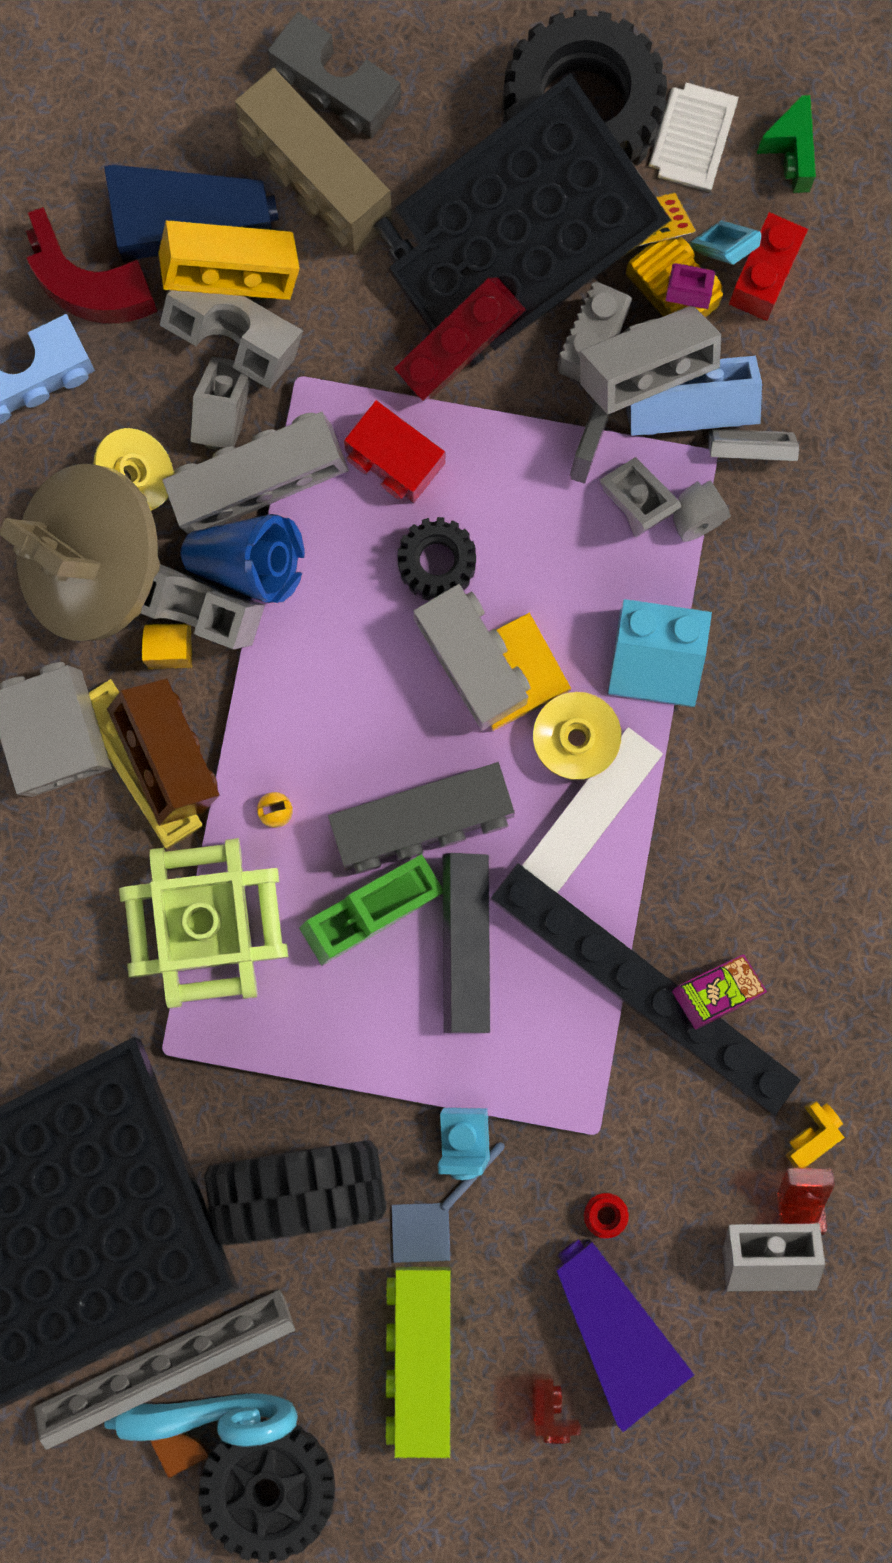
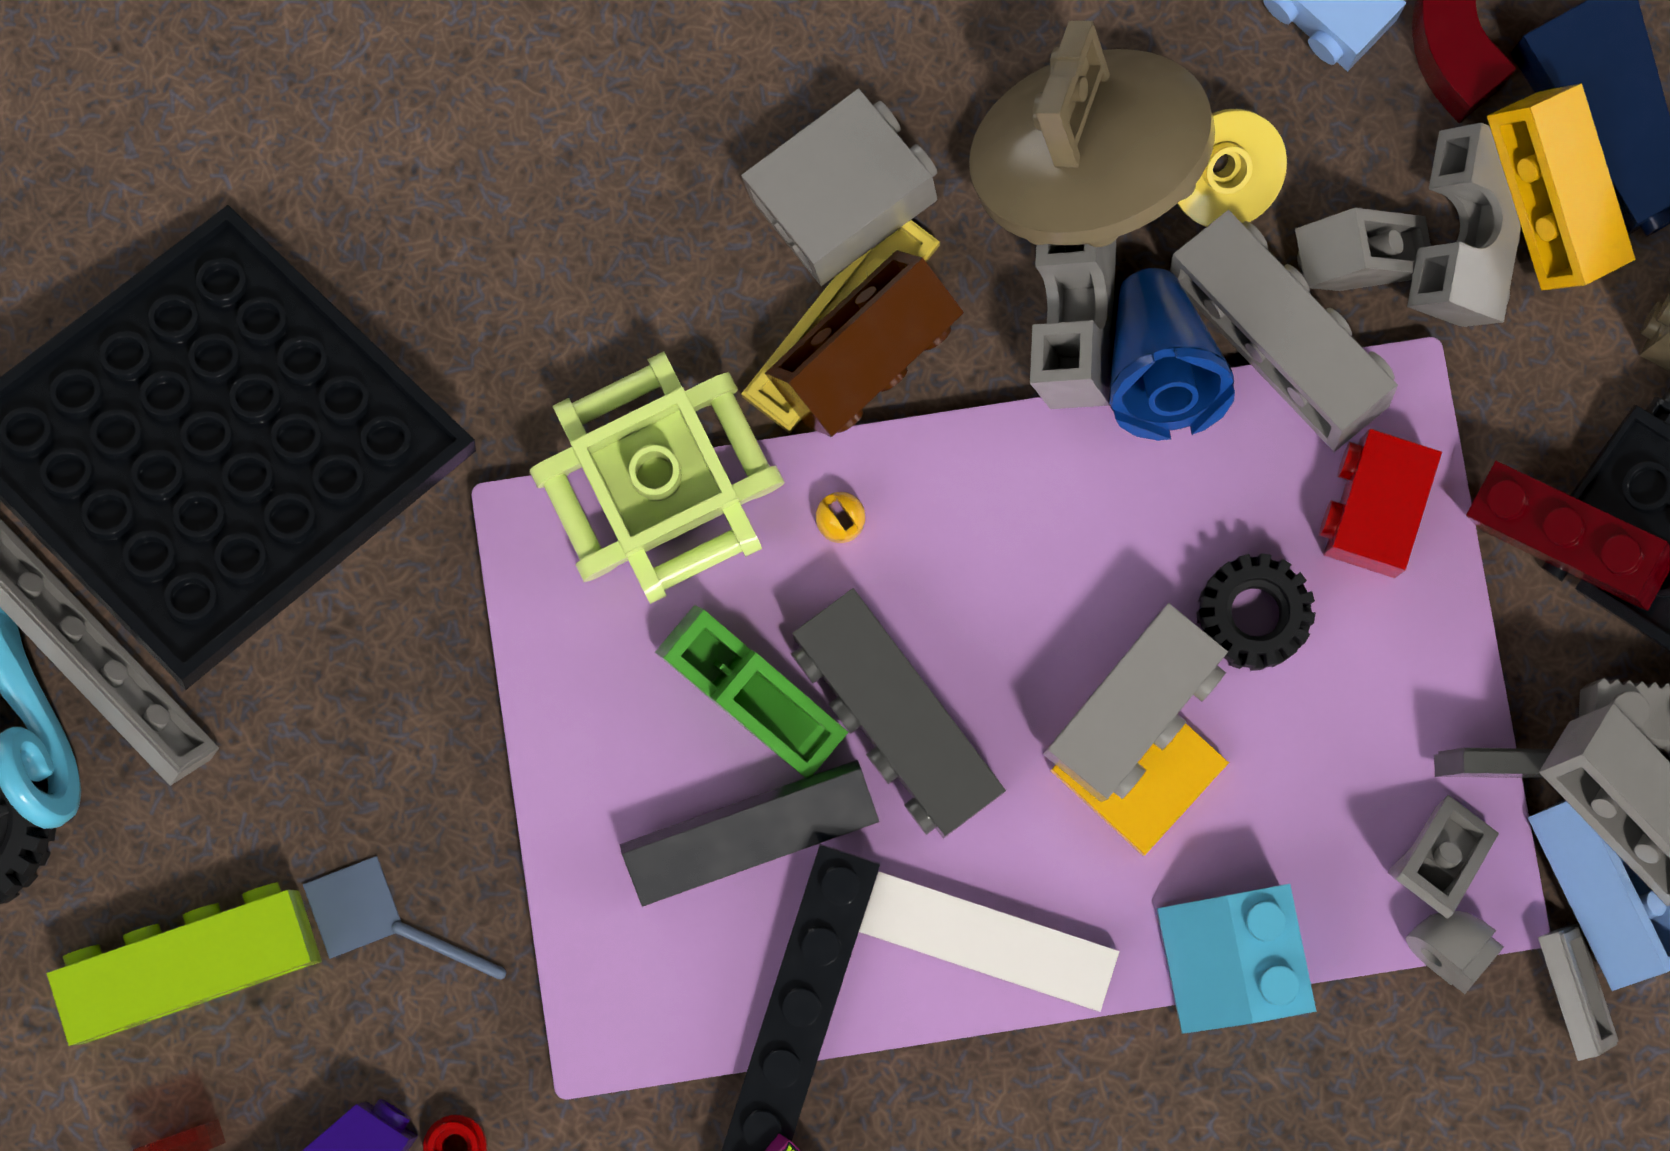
camera: 75 degrees right, 0 degrees up
(167, 646) = (1009, 297): yellow brick -> none
(295, 1193) = (337, 721): black tyre -> none
(464, 1142) = (486, 923): medium azure bracket -> none
(577, 713) = (1115, 880): light yellow dish -> none

